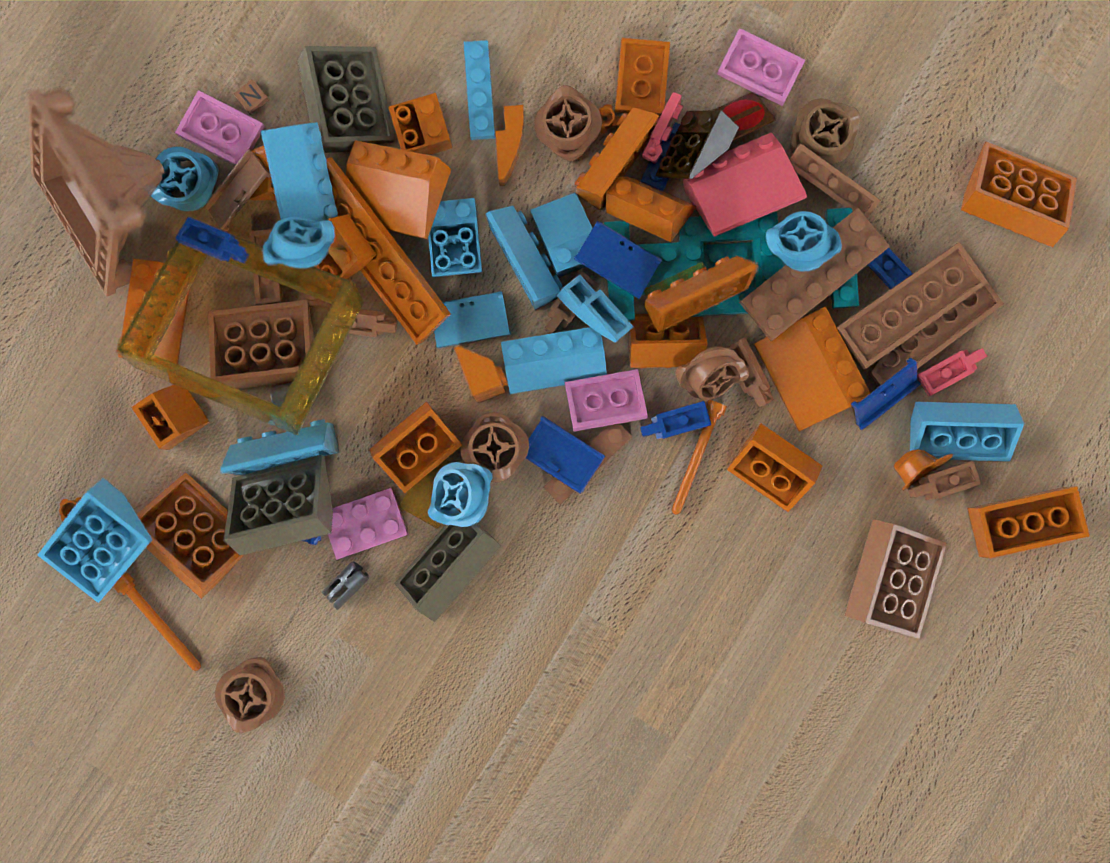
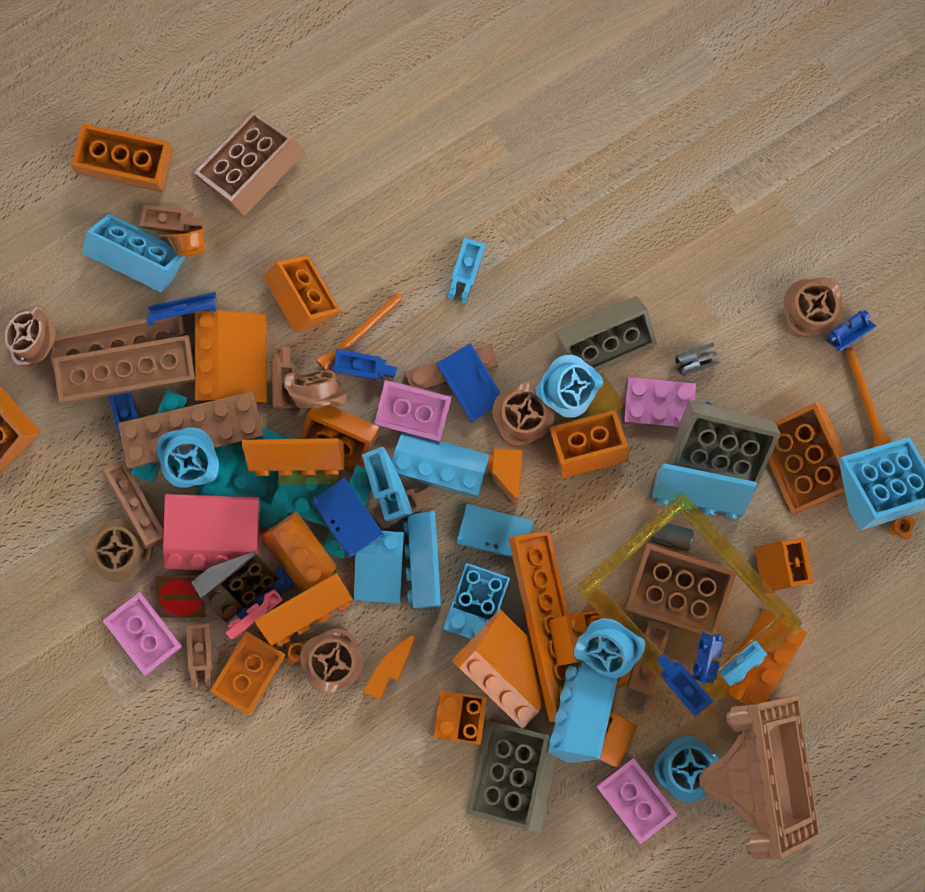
camera: 155 degrees left, 5 degrees down
(159, 285) = (741, 664): none -> medium azure plate
(196, 265) = (704, 667): none -> blue hinge
(201, 686) = (845, 335): none -> blue hinge
(236, 189) = (652, 732): nougat door -> none
(251, 96) = (596, 819): nougat tile -> none
(372, 323) = (582, 566): nougat hinge -> none
(479, 90) = (393, 730): medium azure plate -> none
(621, 572) = (466, 267): none -> medium azure hinge
(697, 74) = (199, 653): none -> nougat hinge
(950, 370) = (118, 305): coral hinge -> none
(1022, 296) = (30, 335): none -> nougat piece

